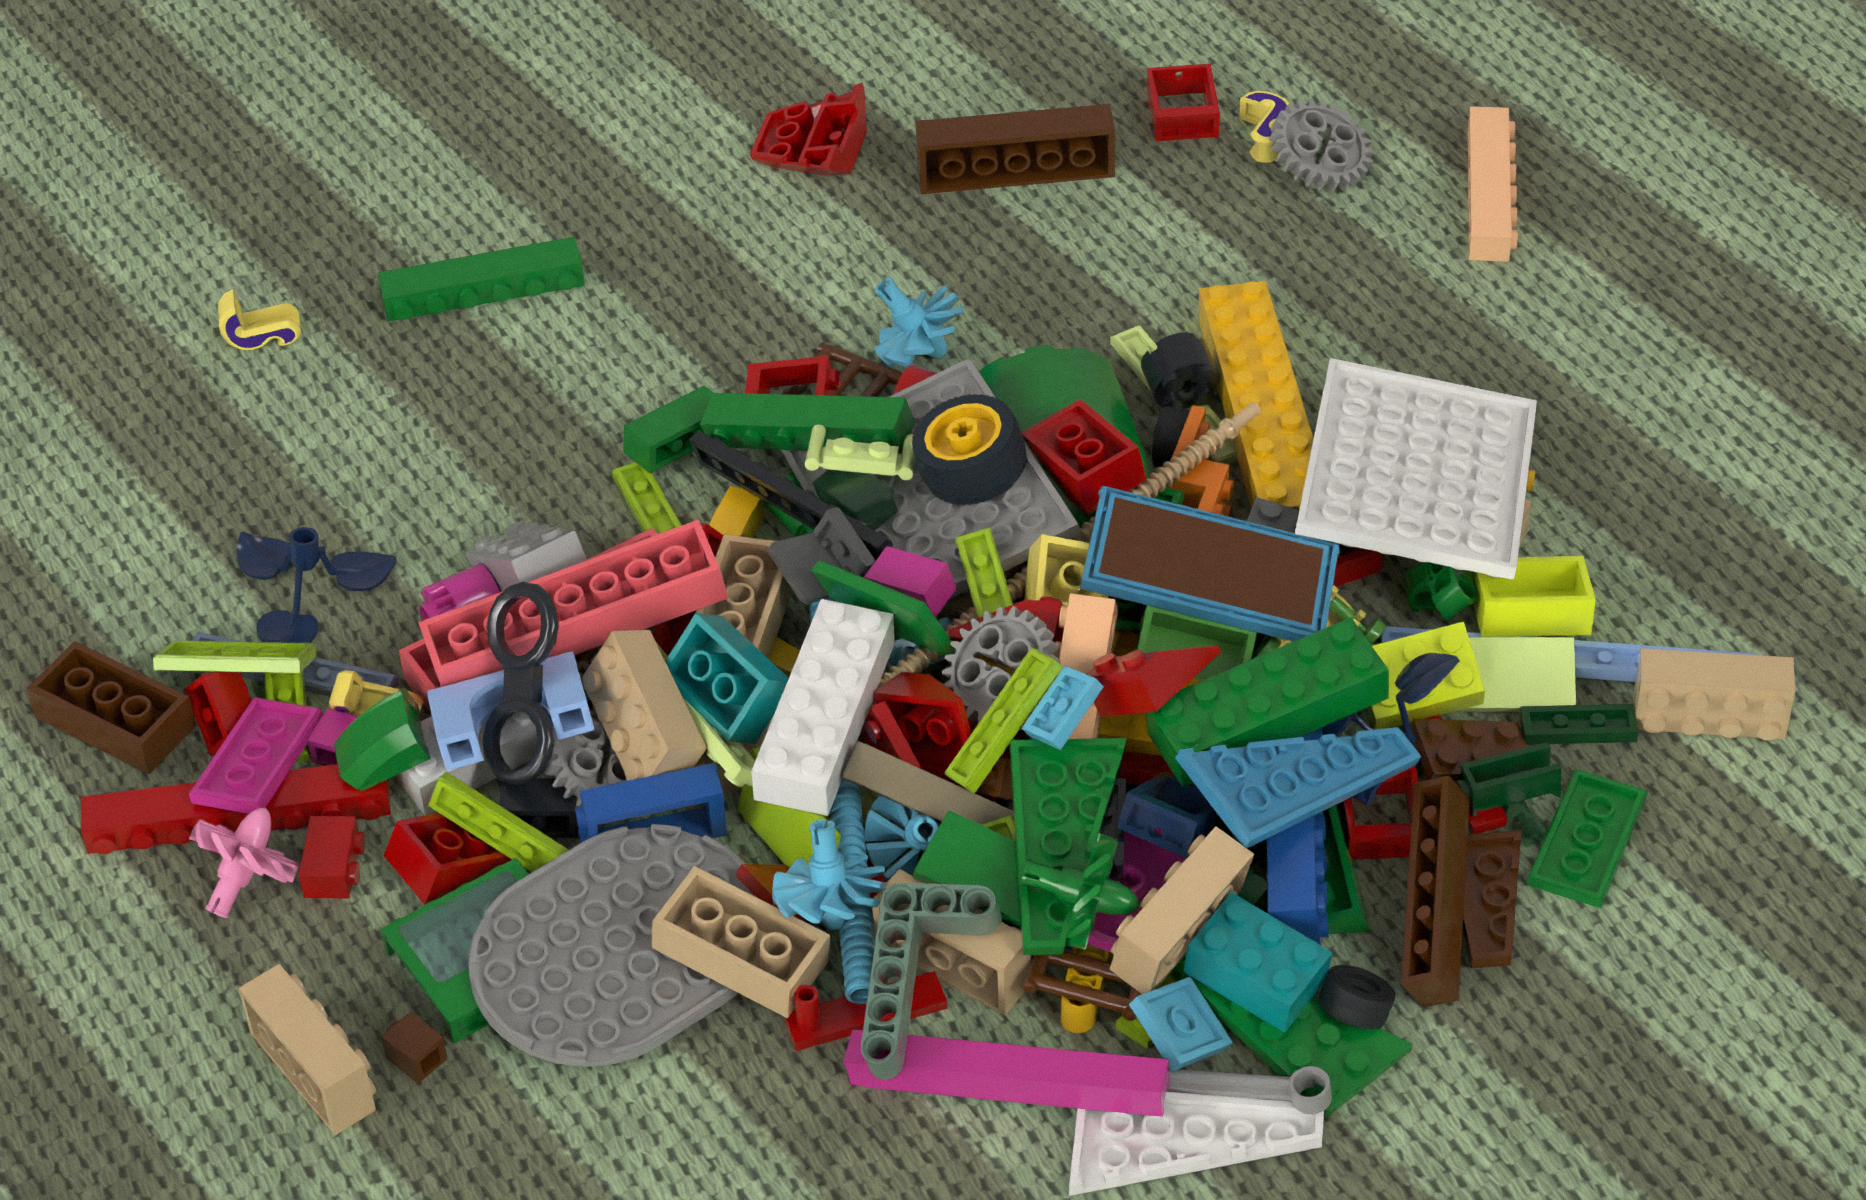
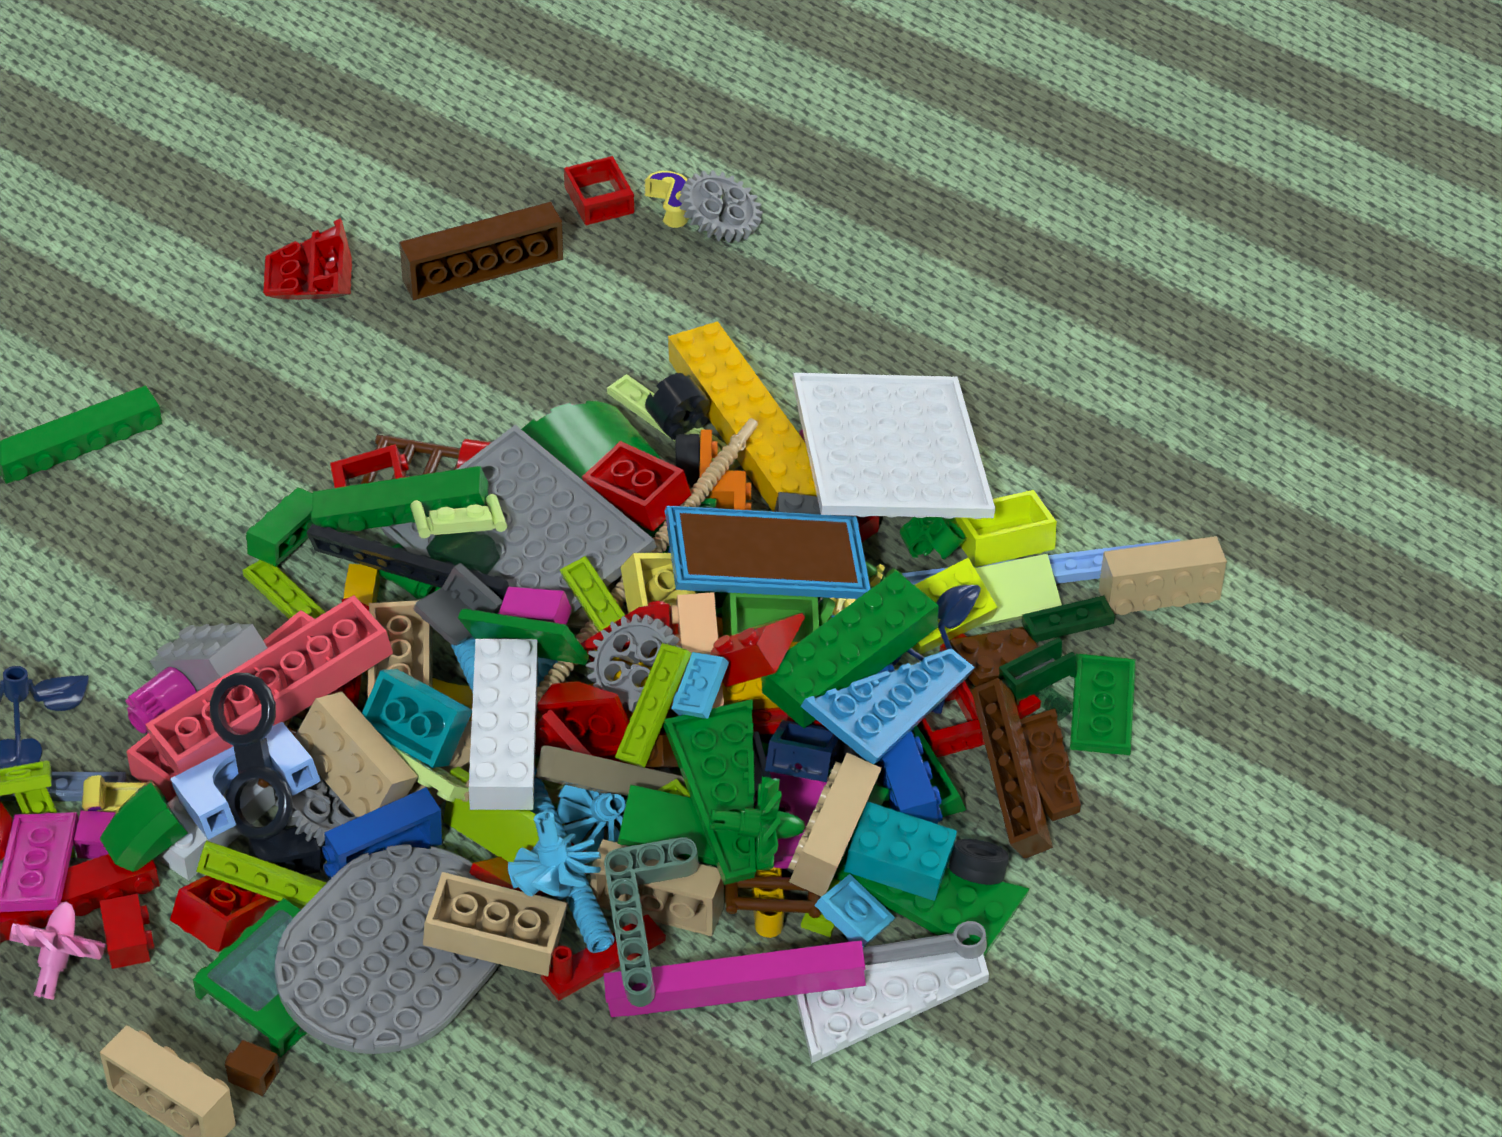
camera: 20 degrees left, 0 degrees up
(915, 325) = (452, 408): medium azure piece -> none
(969, 449) = (547, 497): black wheel -> none
(1490, 184) = (859, 214): light nougat brick -> none

